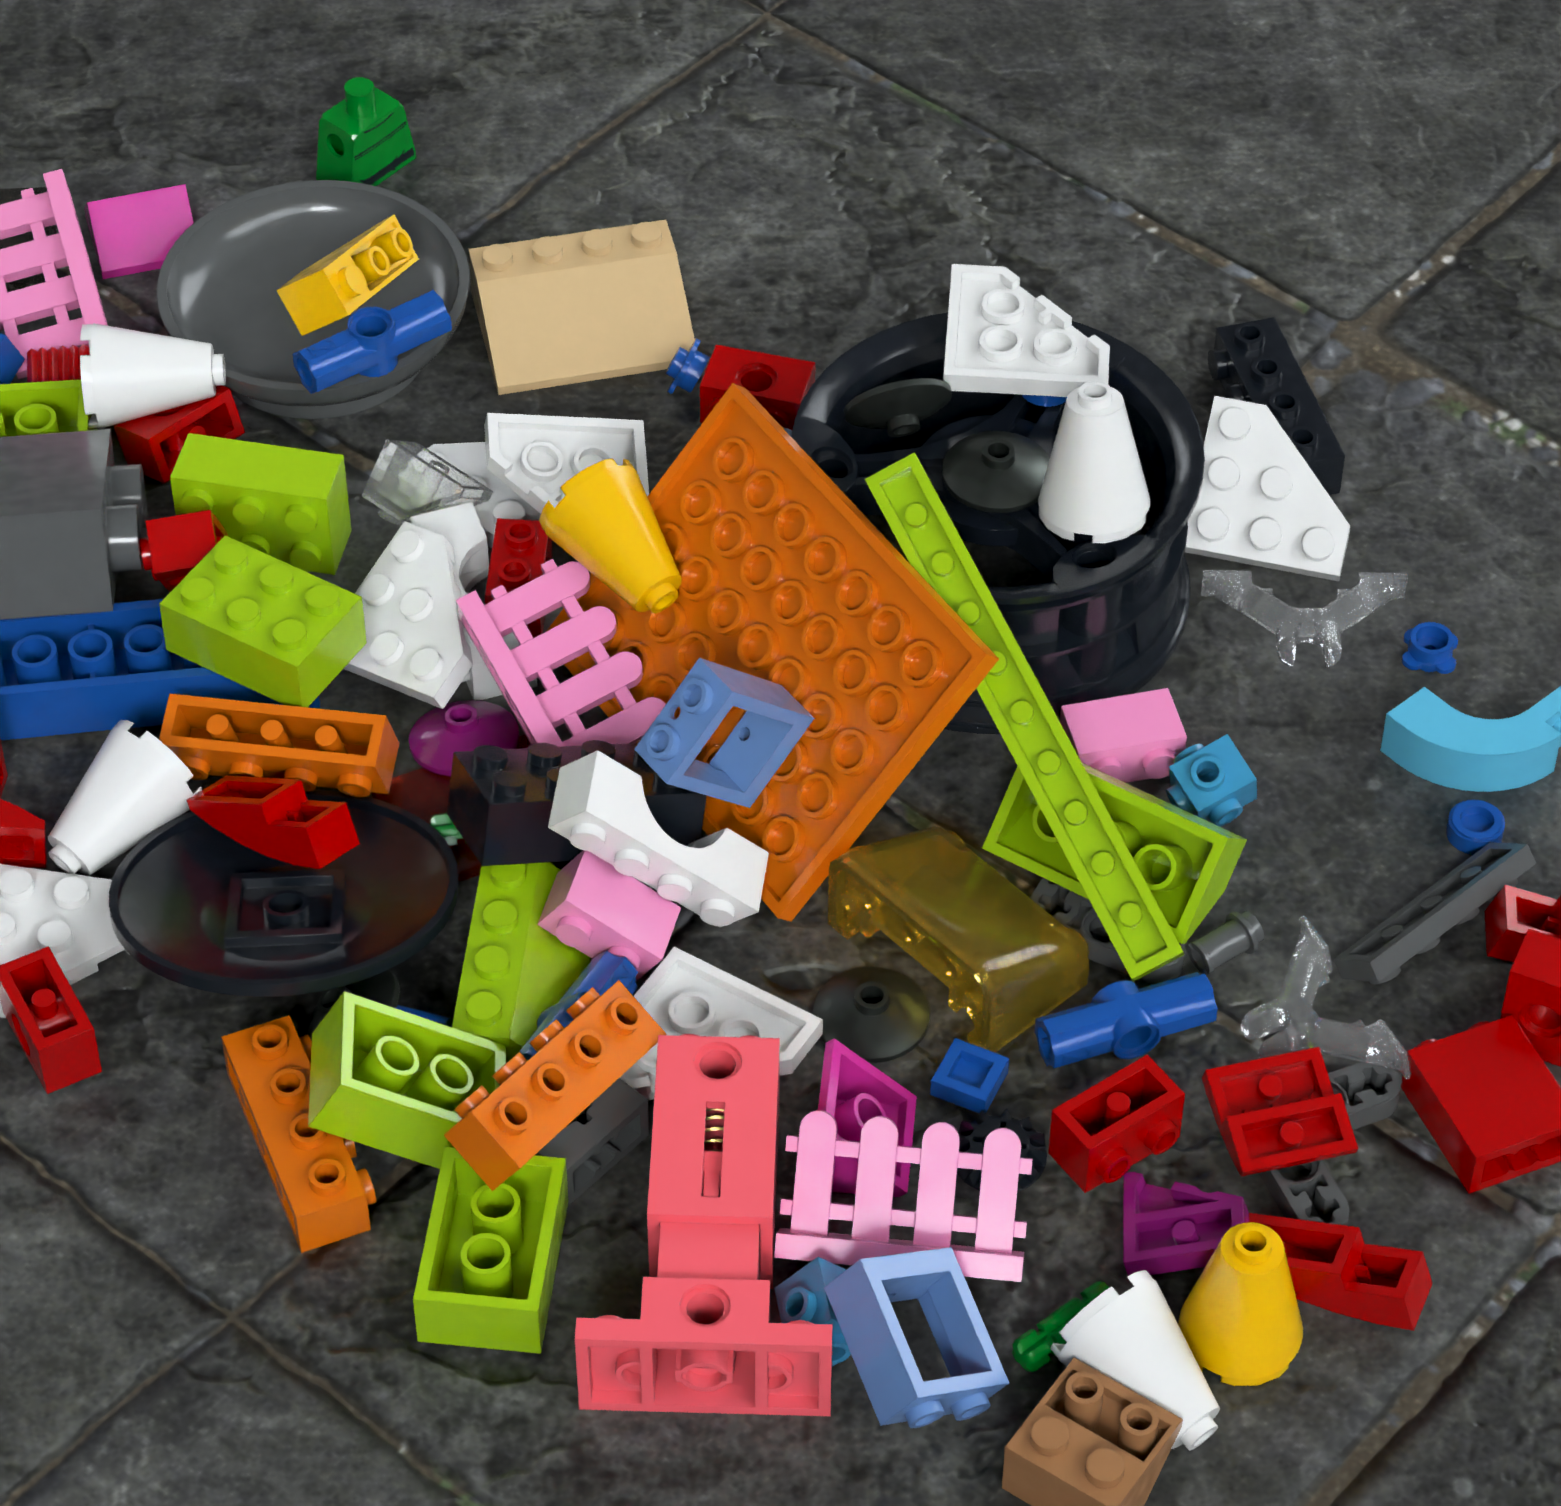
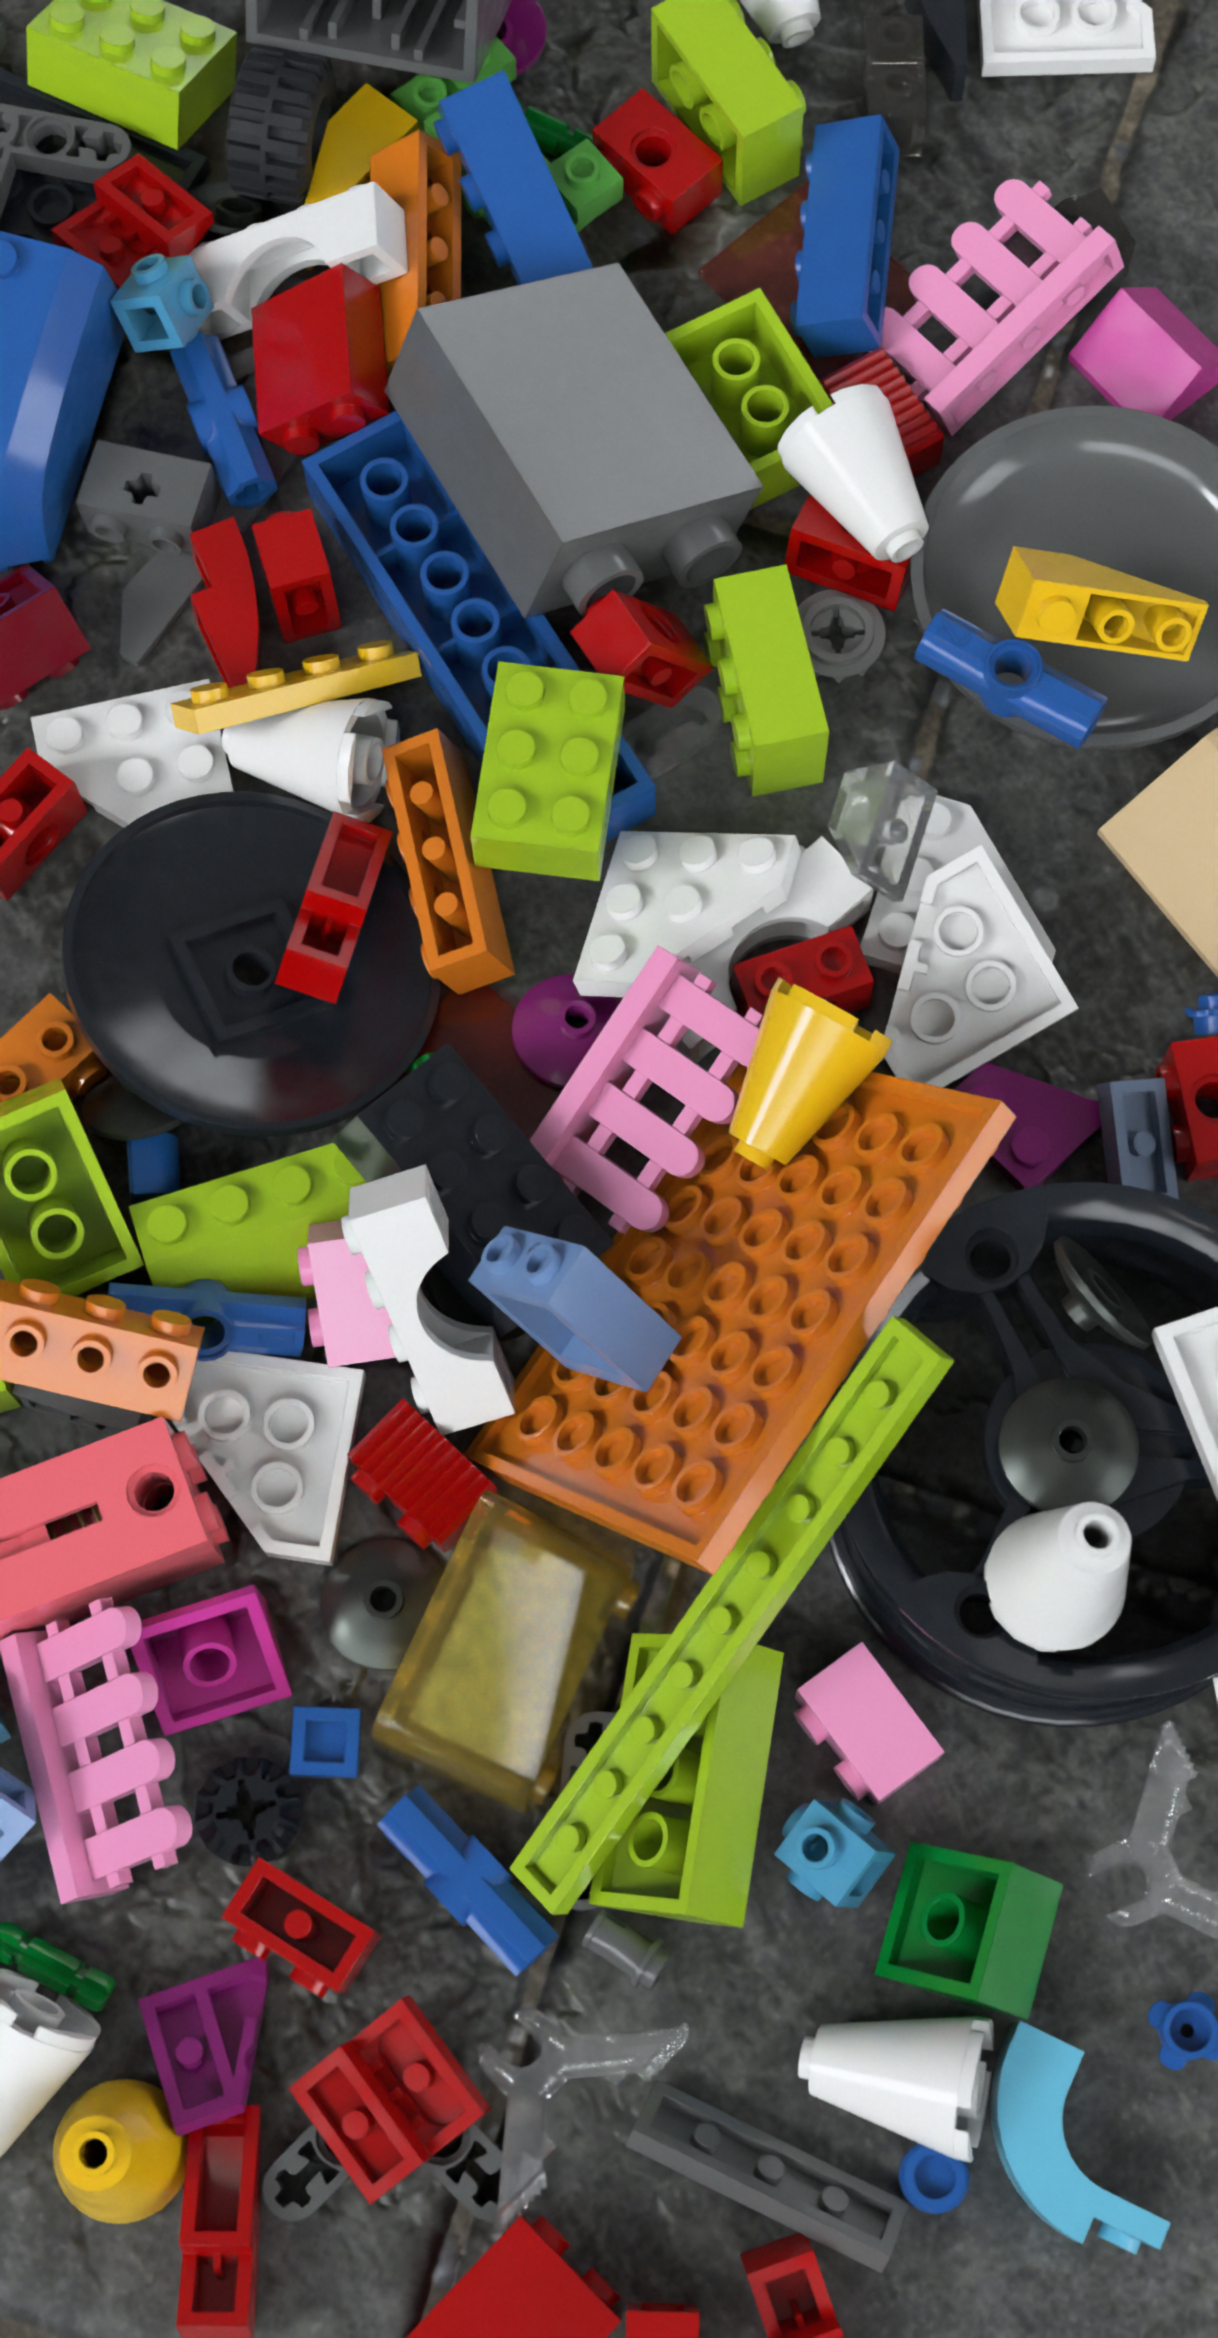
camera: 70 degrees right, 25 degrees up
(64, 783) = (273, 692): none -> yellow plate
(784, 939) = (420, 1476): none -> red brick
(1304, 735) = (969, 1929): none -> green slope
(1401, 792) = (906, 2077): none -> white cone

